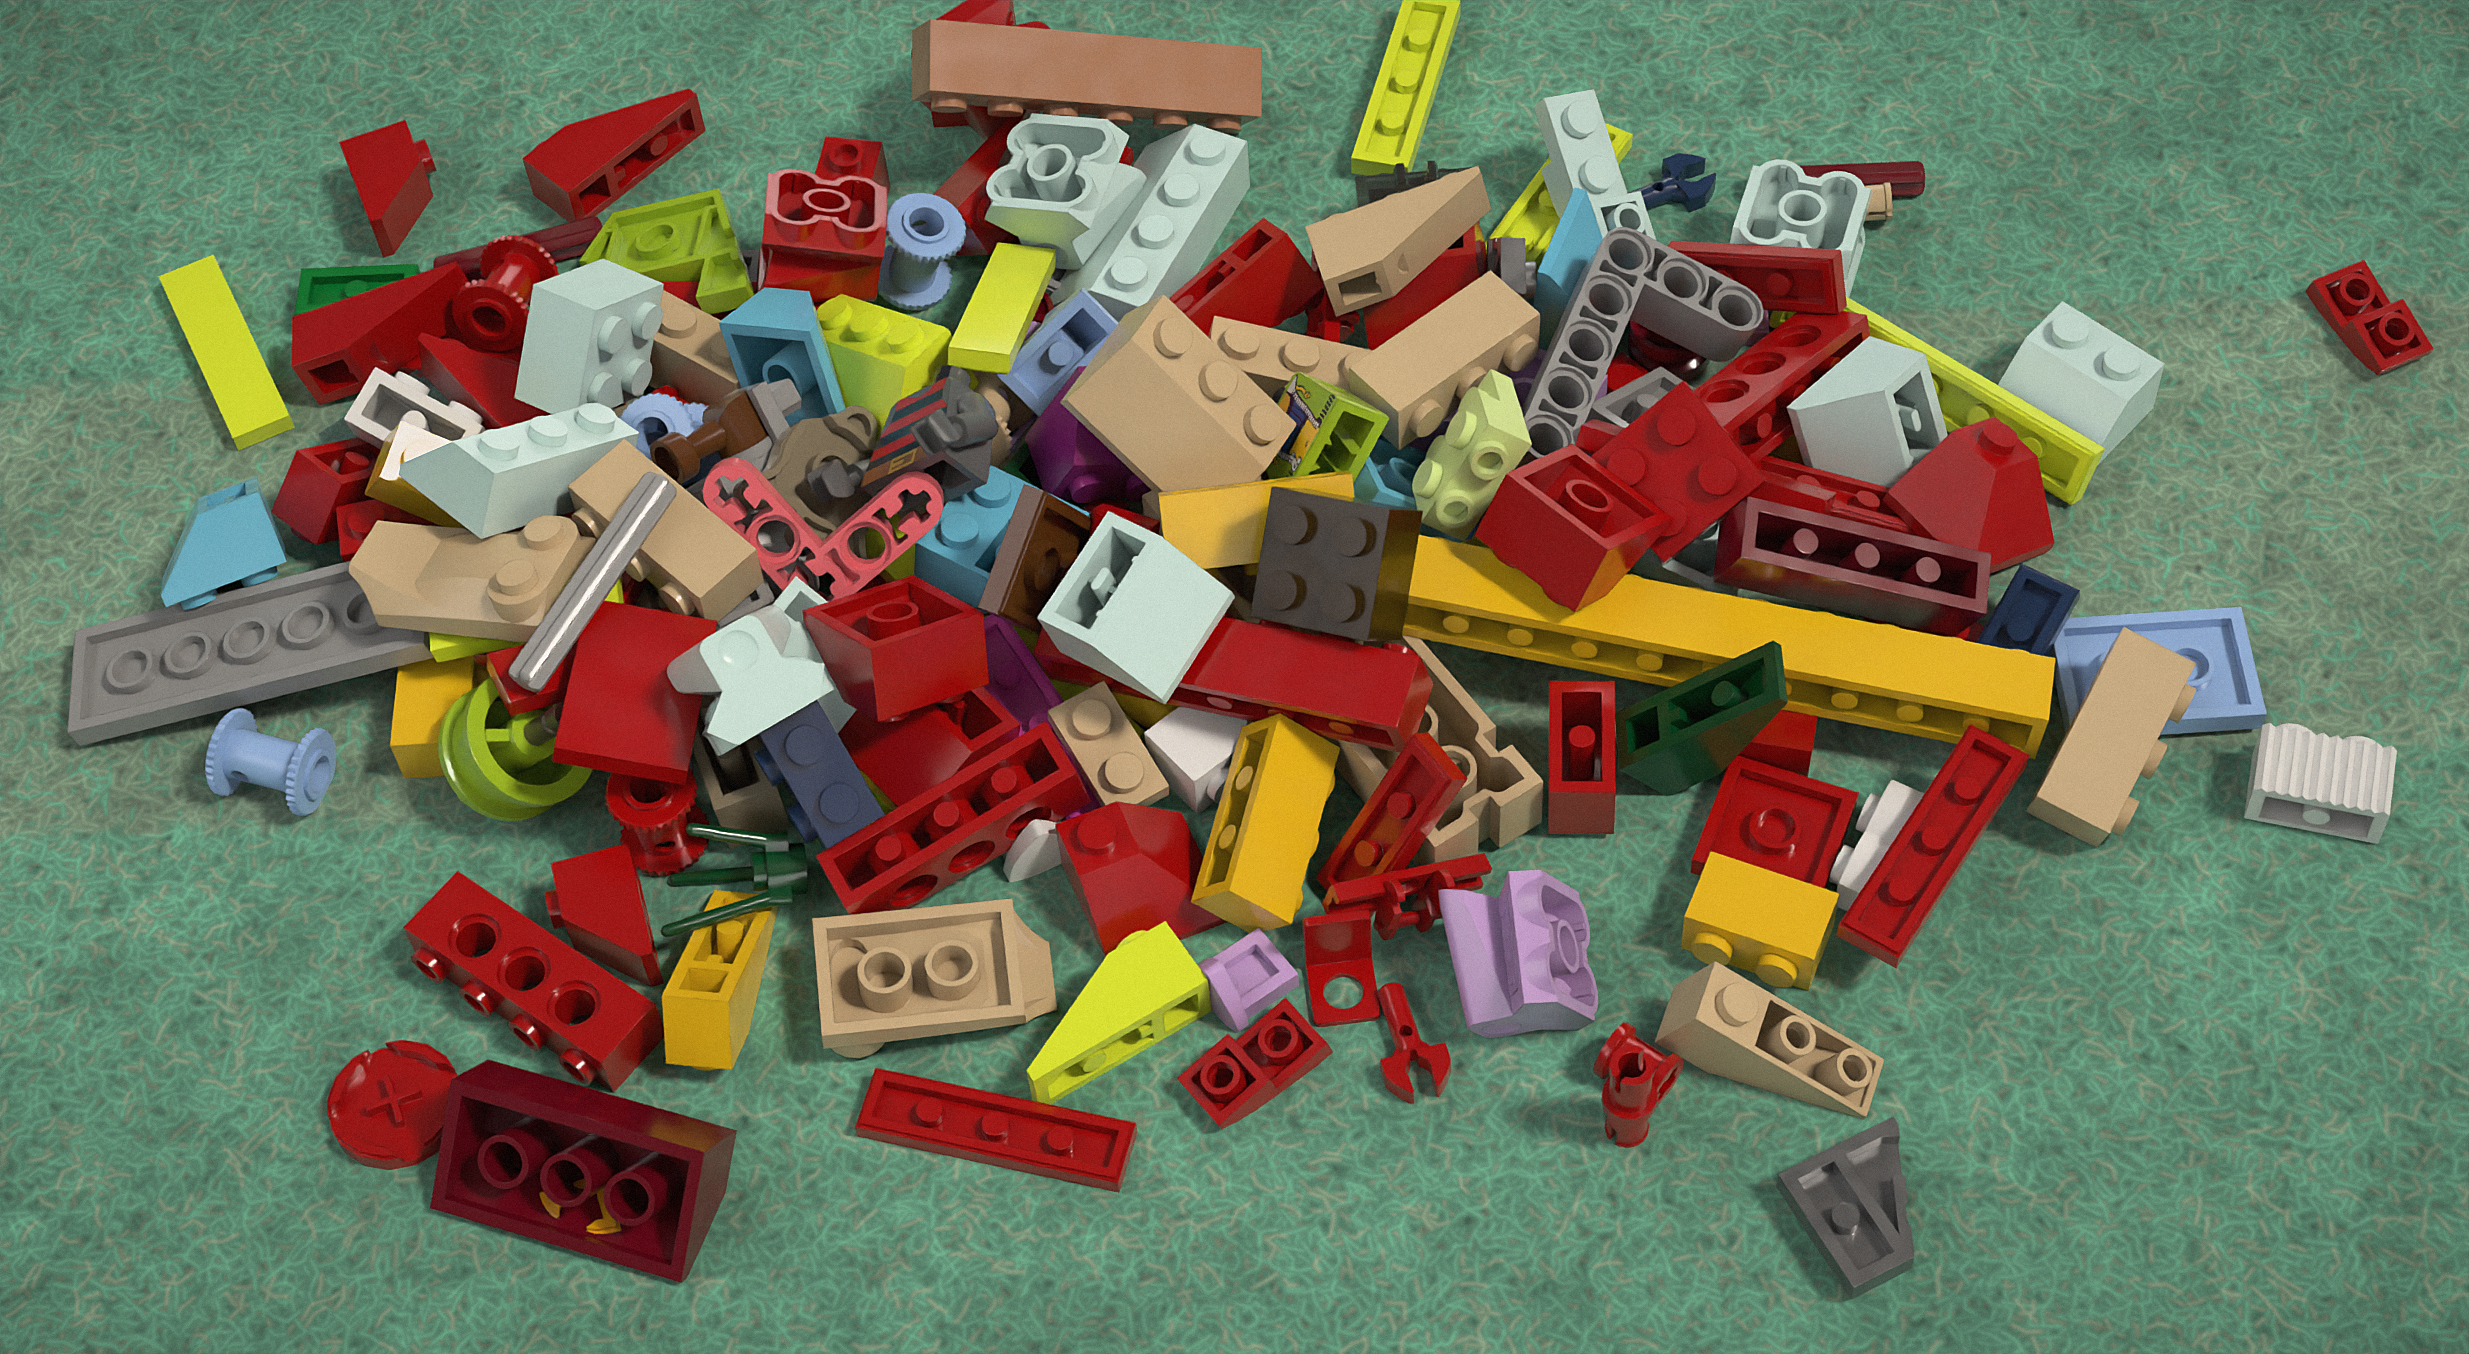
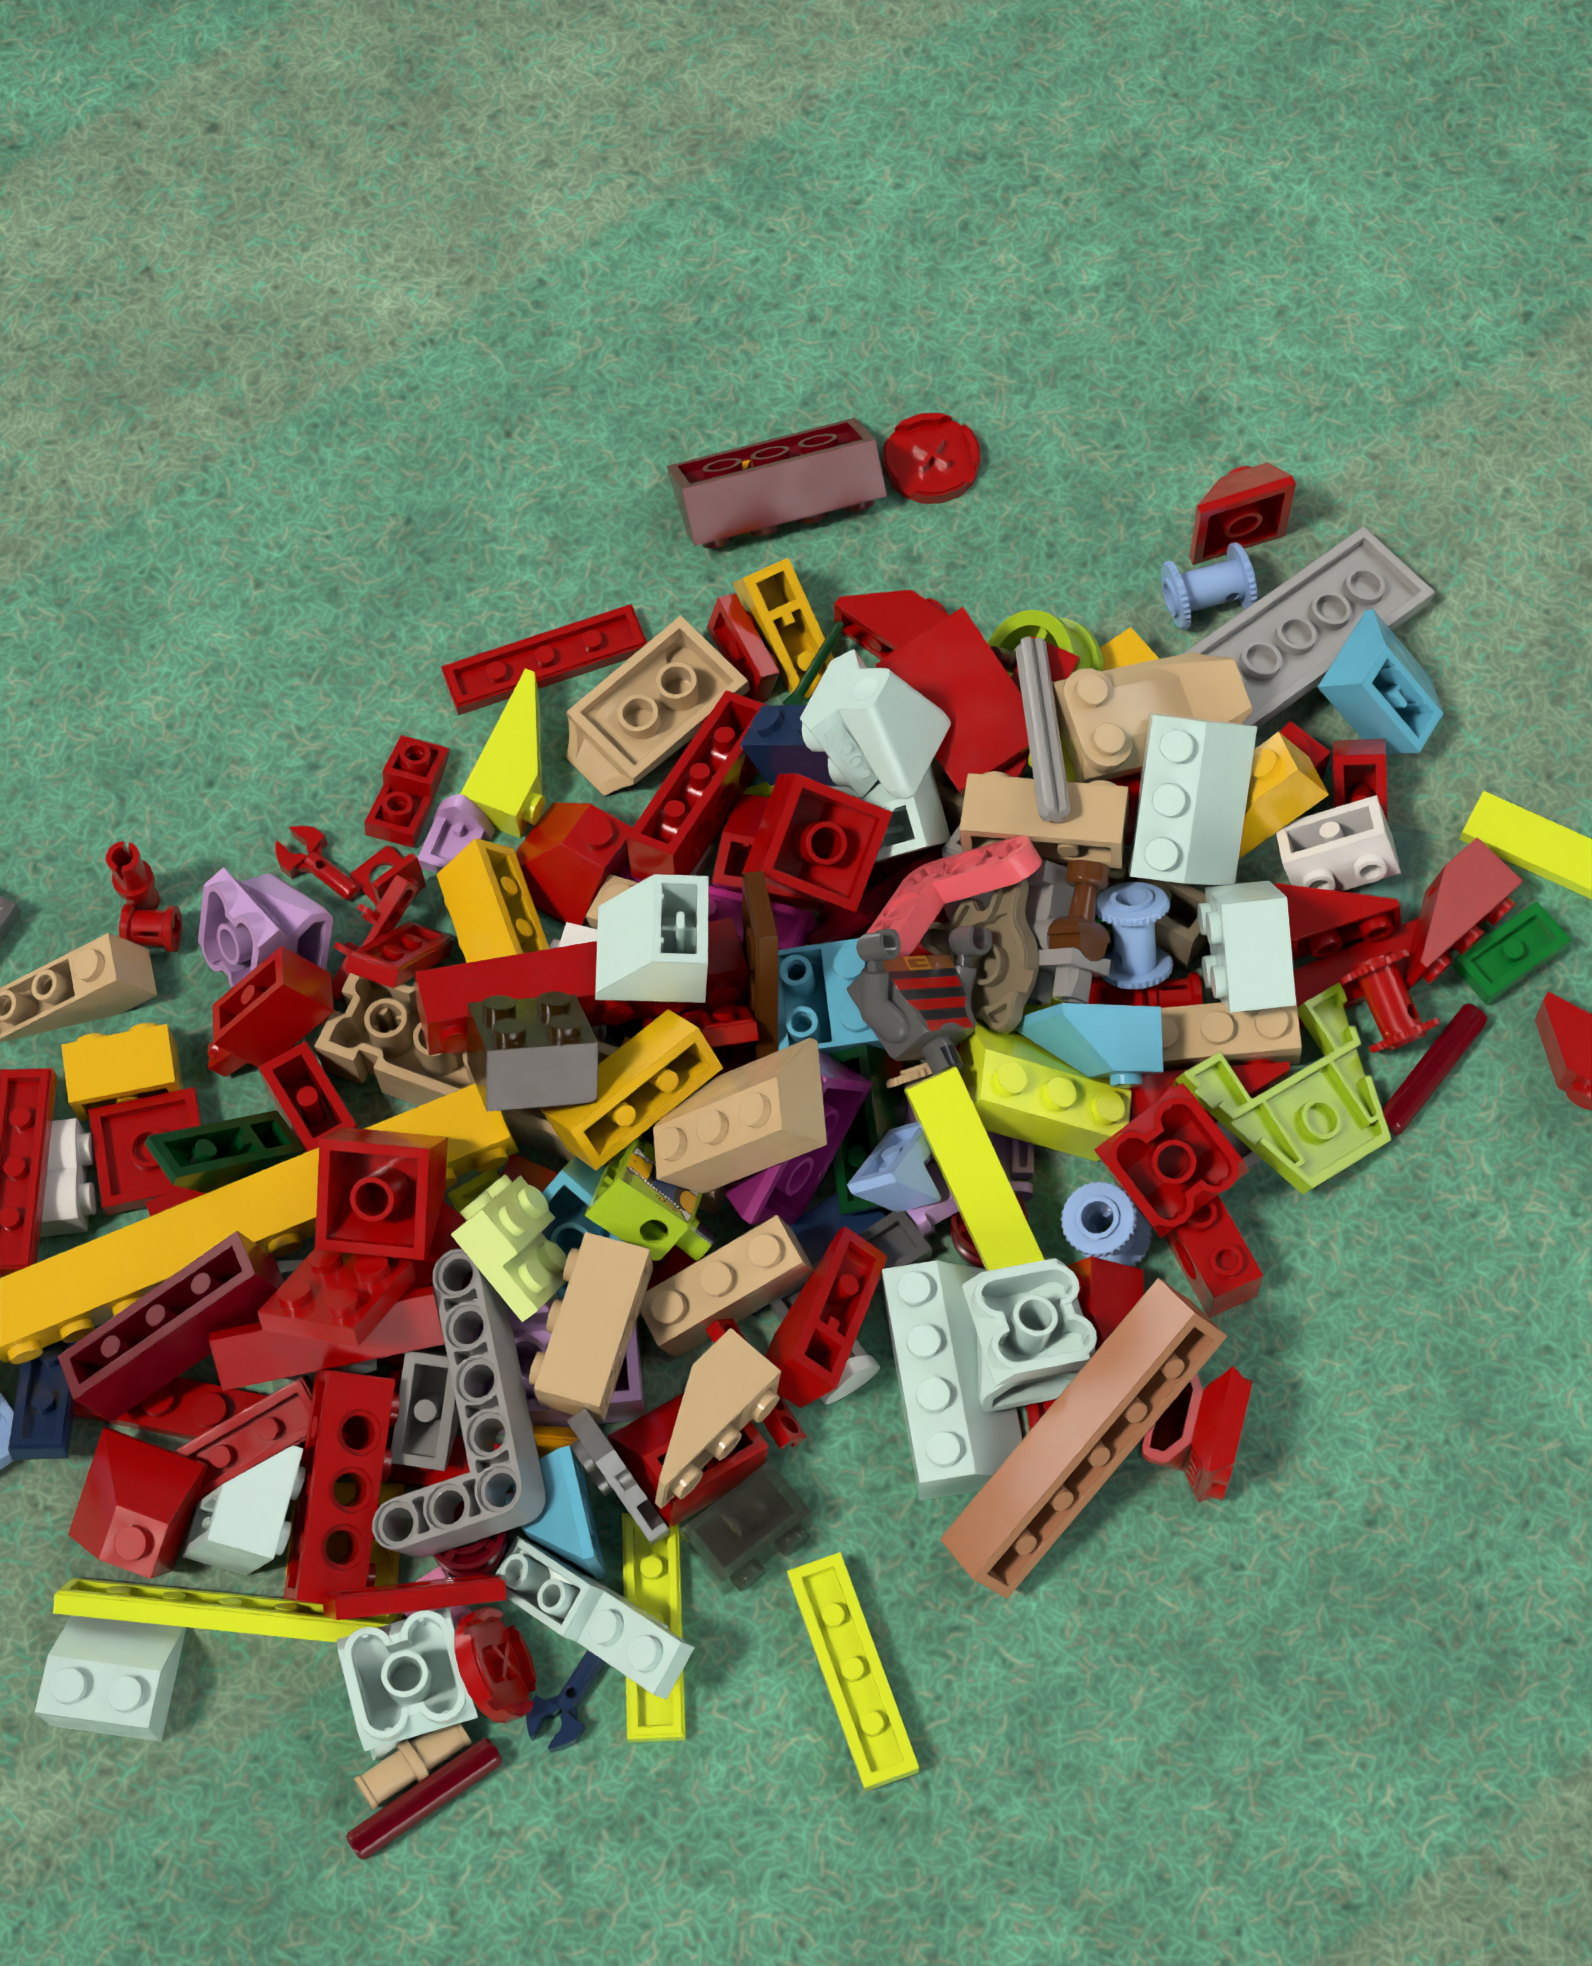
camera: 145 degrees right, 10 degrees up
(162, 807) = (1242, 508): none -> red slope
(469, 919) = (931, 574): red brick -> none
(606, 155) = (1446, 1170): red slope -> none
(782, 989) = (742, 647): none -> red plate
(1576, 848) = (269, 1011): none -> red hinge
(1720, 199) = (494, 1665): none -> red tile

